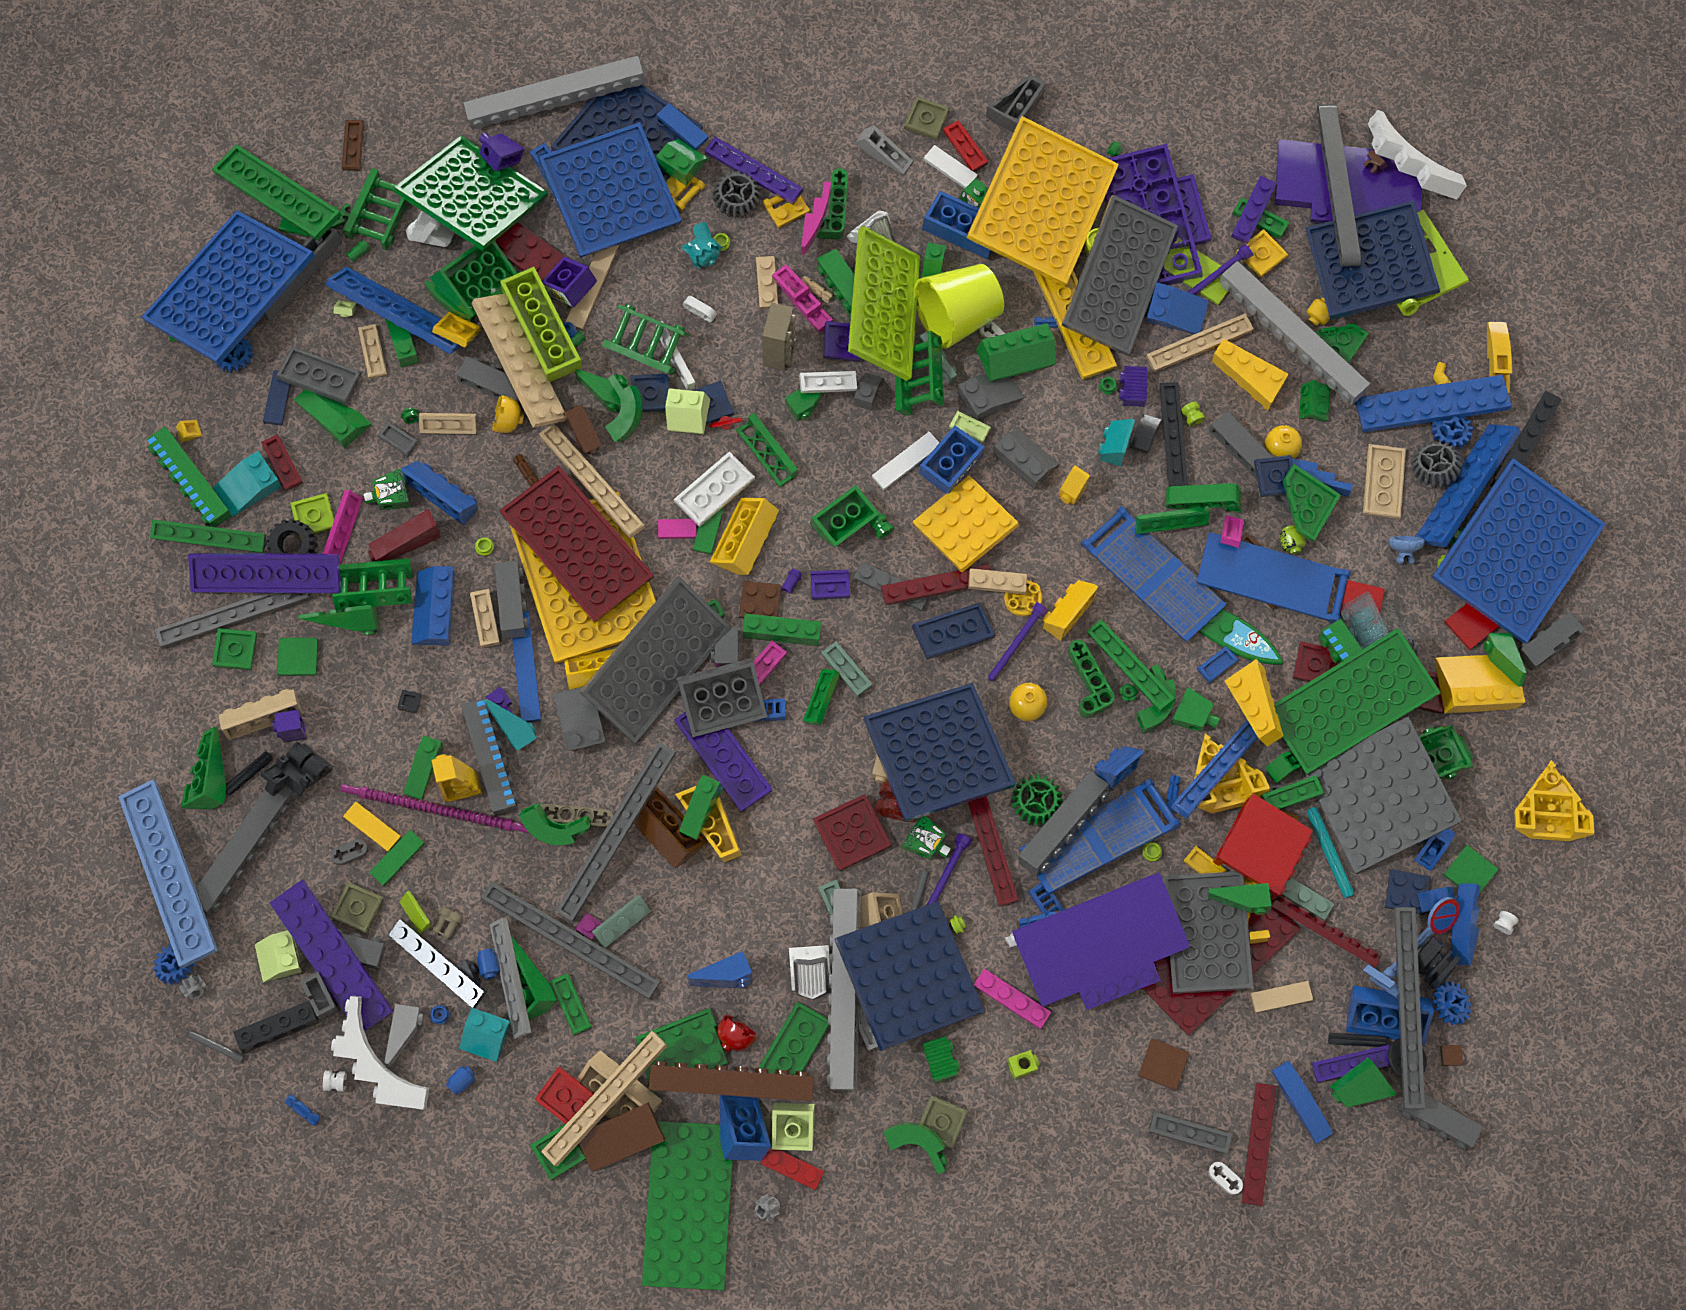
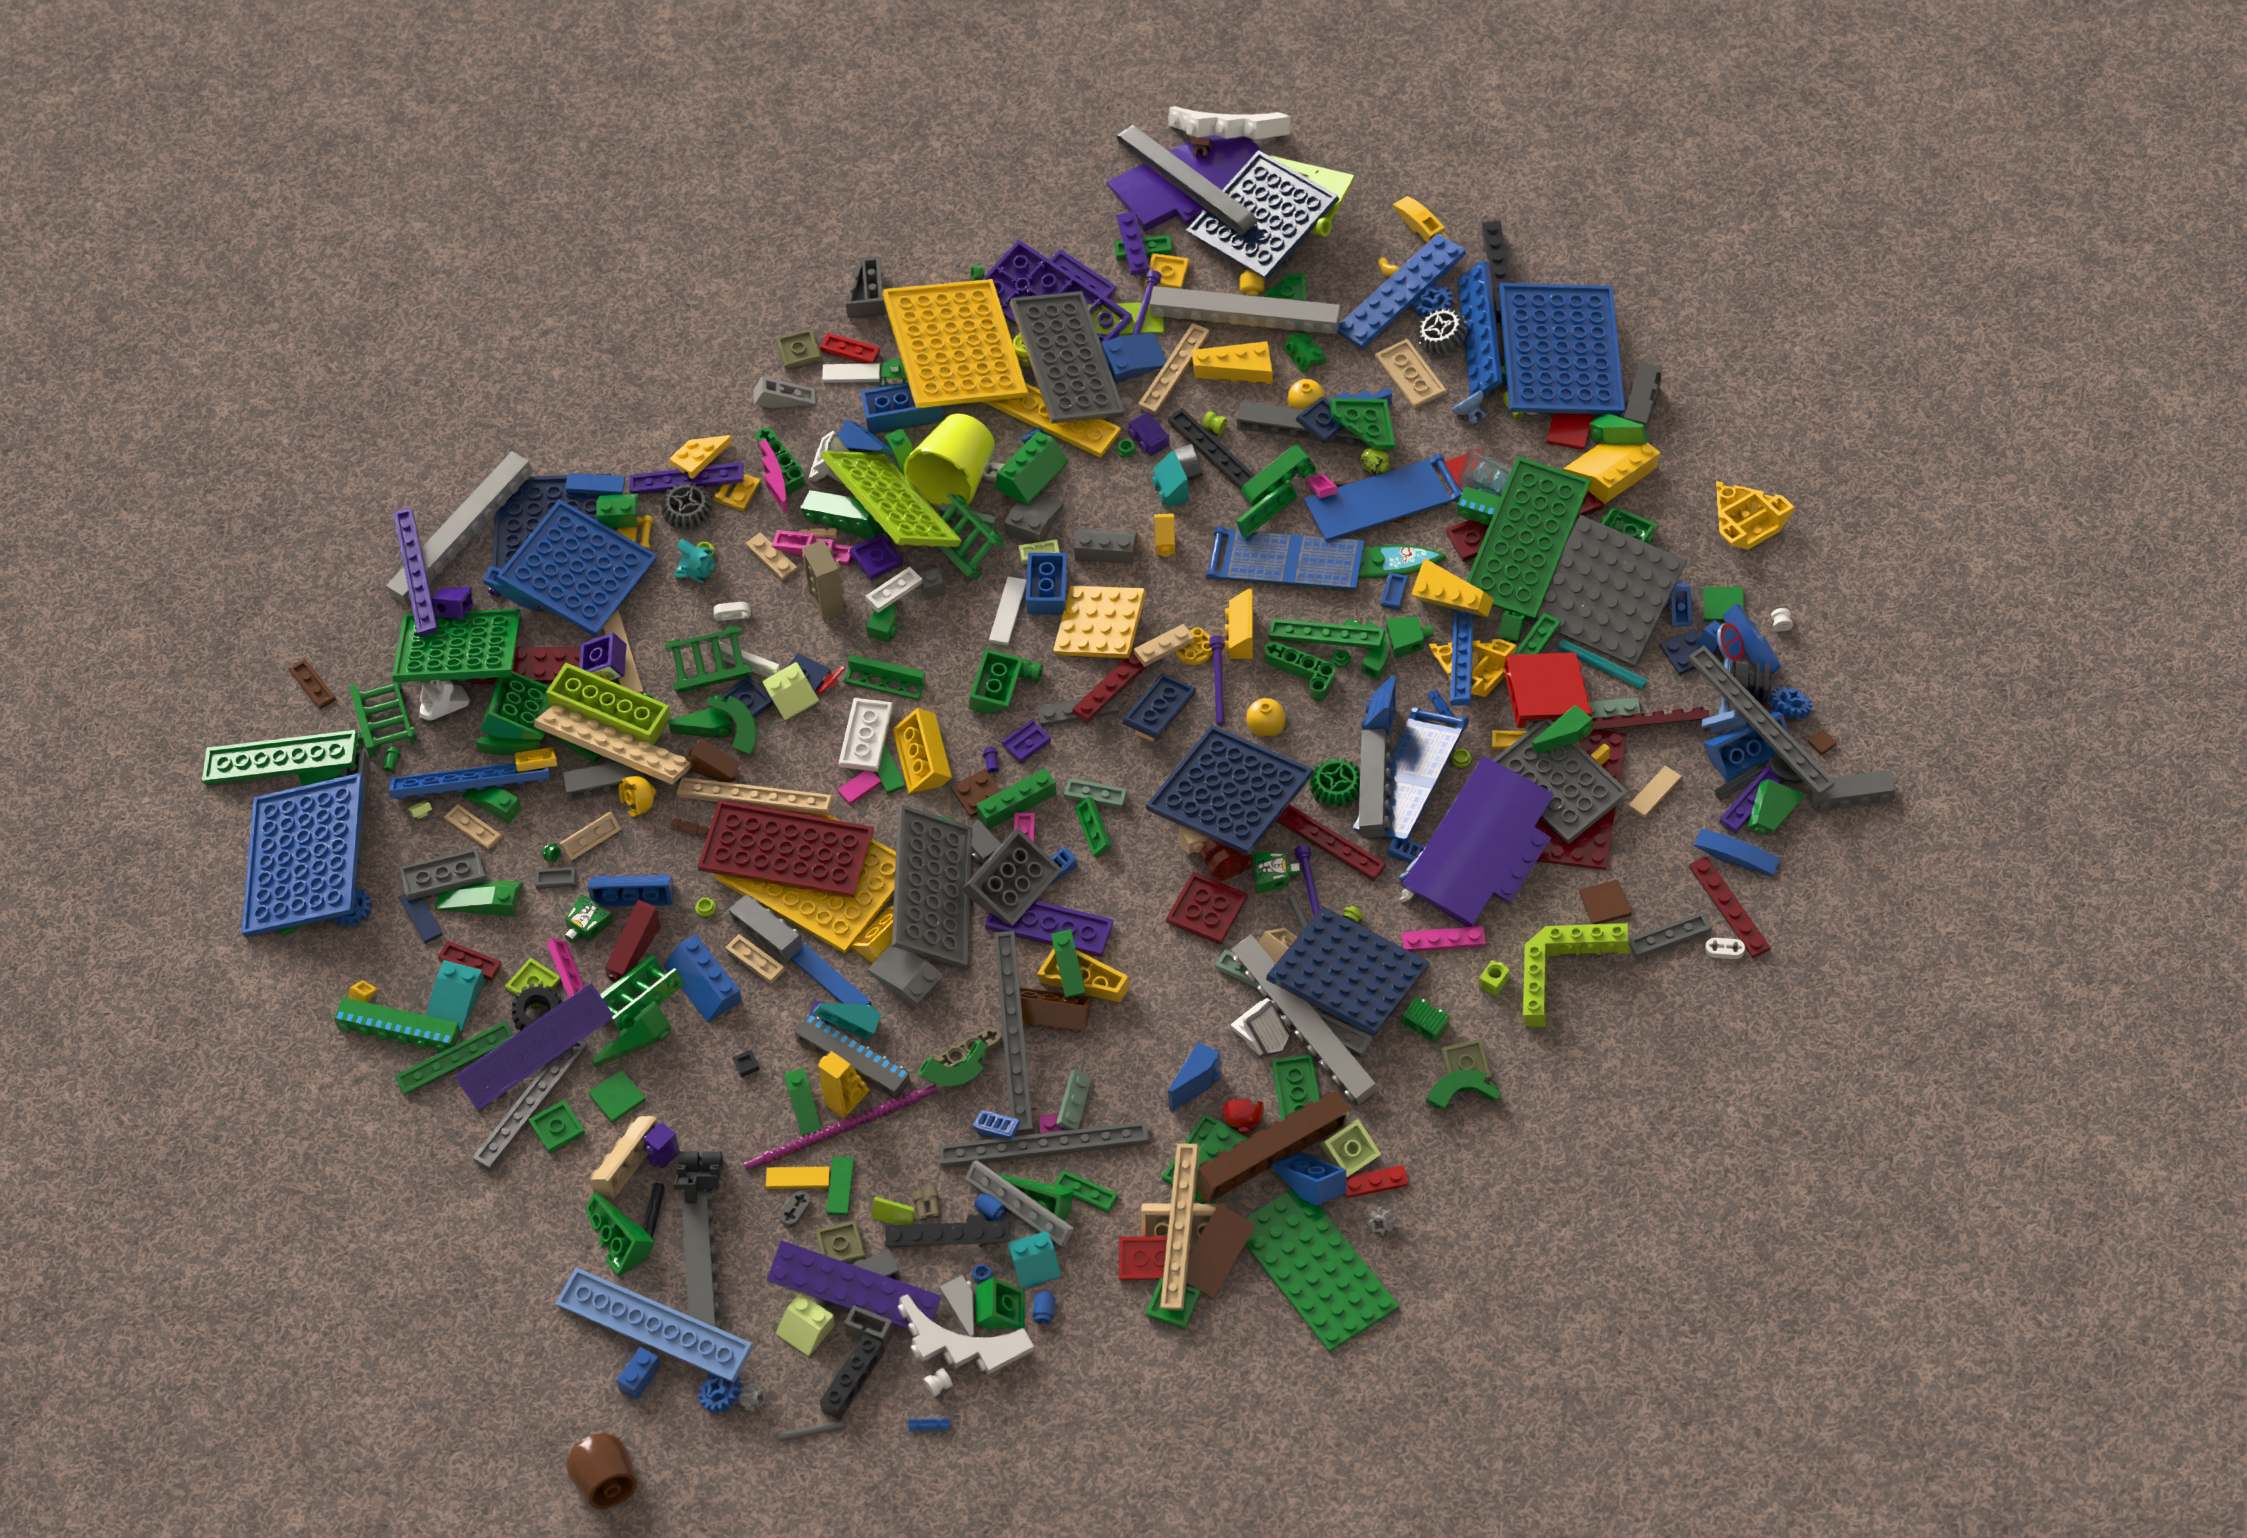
camera: 30 degrees left, 15 degrees down
(37, 964) = (604, 1463): none -> reddish brown piece
(129, 902) = (638, 1373): none -> blue brick
(430, 1053) = (1000, 1305): none -> green slope
(489, 108) = (415, 572): none -> plate
(539, 889) = (985, 1119): none -> blue slope
(778, 155) = (698, 454): none -> yellow wing
(908, 230) = (861, 440): none -> blue slope
(1094, 1071) = (1564, 940): none -> lime brick

